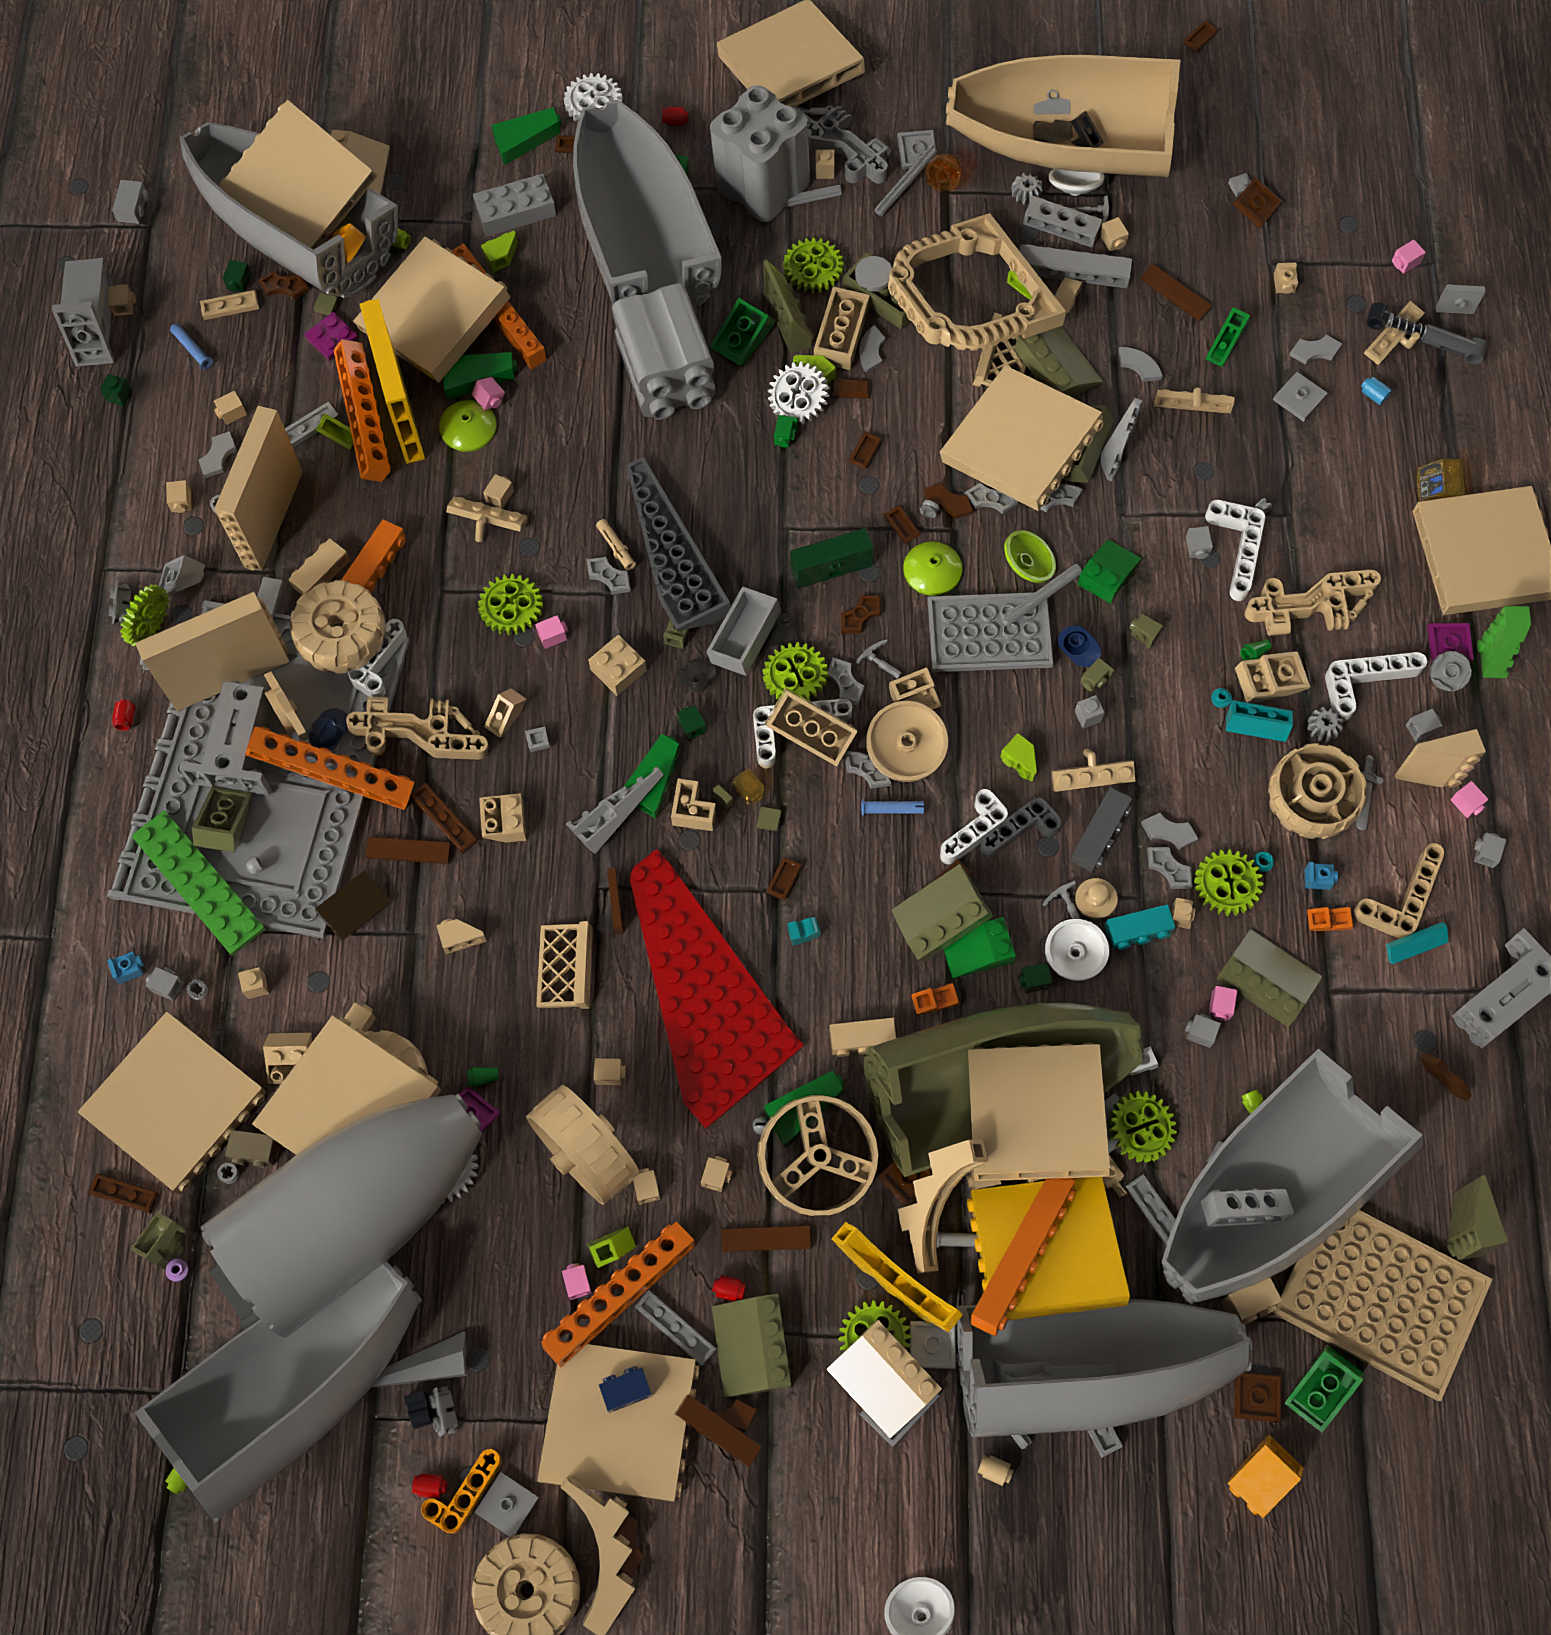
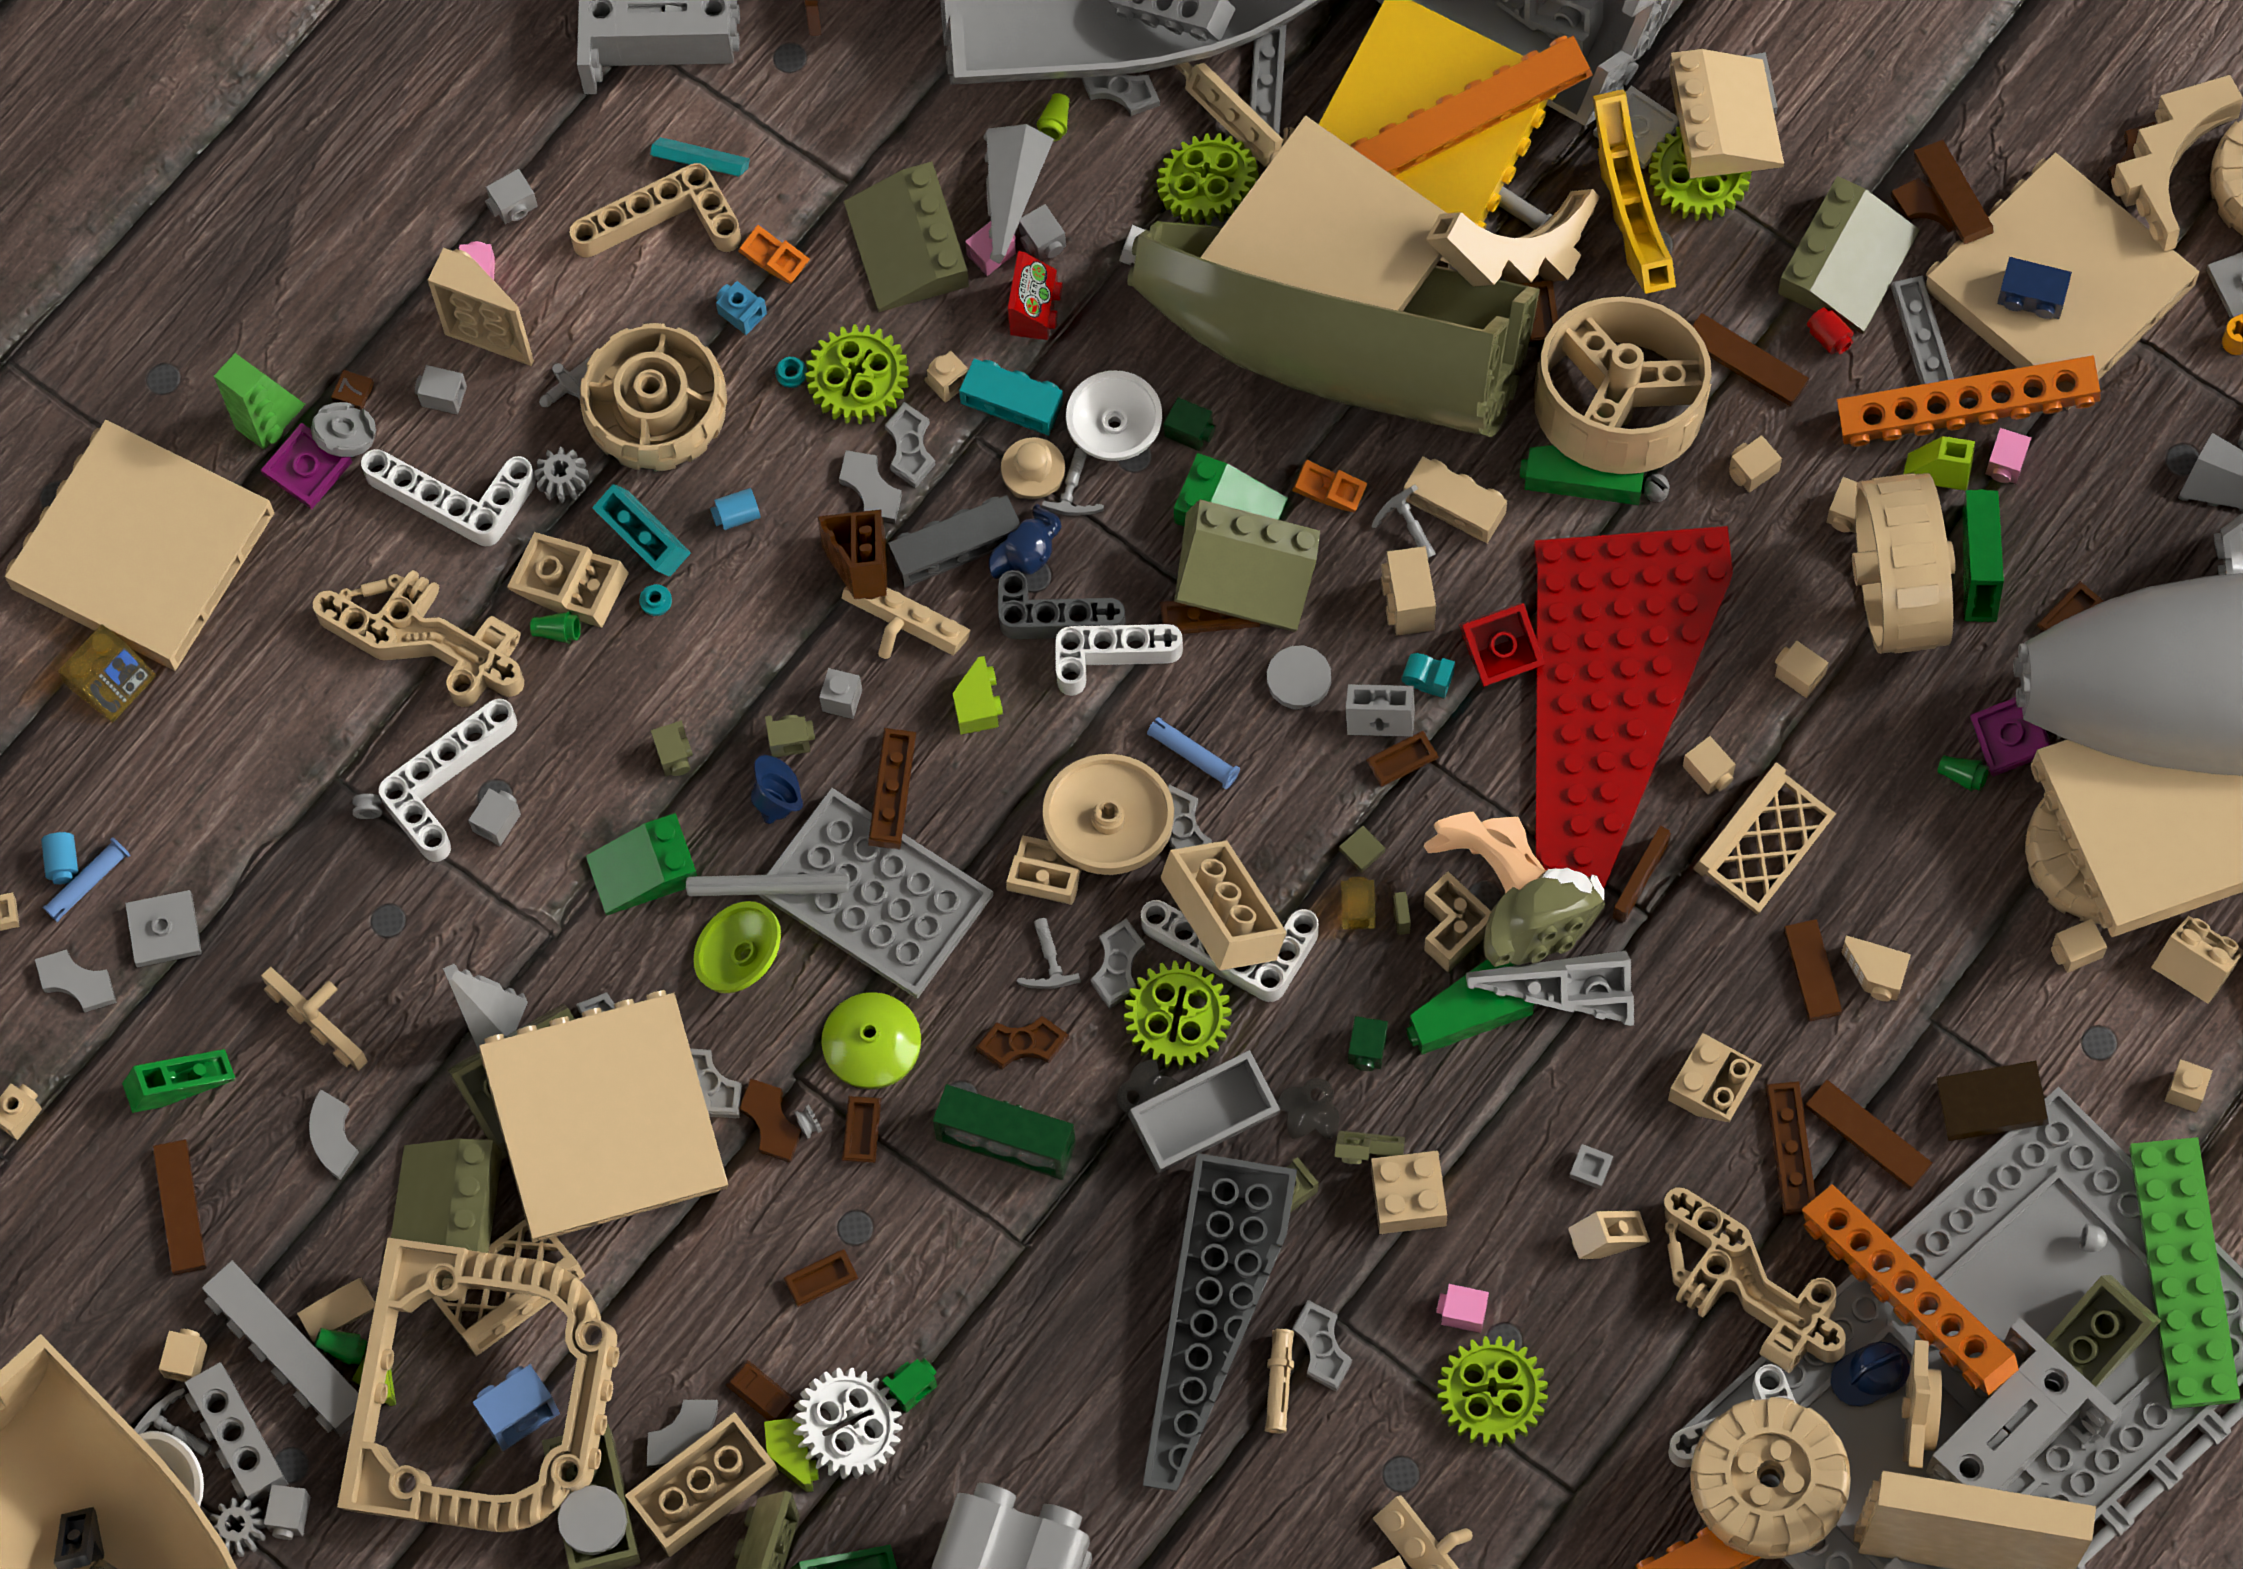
camera: 140 degrees left, 0 degrees up
(481, 1212) = (2074, 602): none -> reddish brown tile
(493, 915) = (1812, 970): none -> reddish brown tile
(553, 1210) = (1982, 556): none -> green slope
(619, 983) = (1709, 766): none -> tan brick
(652, 830) = (1540, 907): none -> animal
(658, 672) = (1357, 1146): none -> olive plate
(777, 971) = (1502, 644): none -> red slope
(812, 889) = (1380, 710): none -> light grey brick
(845, 961) = (1408, 591): none -> tan brick
(870, 885) = (1298, 677): none -> light grey tile
(888, 1010) = (1413, 526): none -> light grey piece
(952, 298) = (515, 1406): none -> medium blue brick
(1012, 208) = (287, 1511): none -> light grey brick
(1023, 684) = (892, 788): none -> reddish brown tile
(1053, 280) = (342, 1345): none -> green cone
(1060, 851) = (1028, 546): none -> dark blue hair
(1140, 780) = (857, 551): none -> reddish brown wedge
(1150, 1174) = (1231, 111): none -> tan plate
(1175, 985) = (1033, 298): none -> red slope
(1224, 768) = (735, 509): none -> dark azure brick
(1251, 1057) = (1014, 163): none -> light grey wedge
(1355, 392) = (86, 880): none -> medium blue pin
(1467, 697) = (352, 389): none -> reddish brown tile

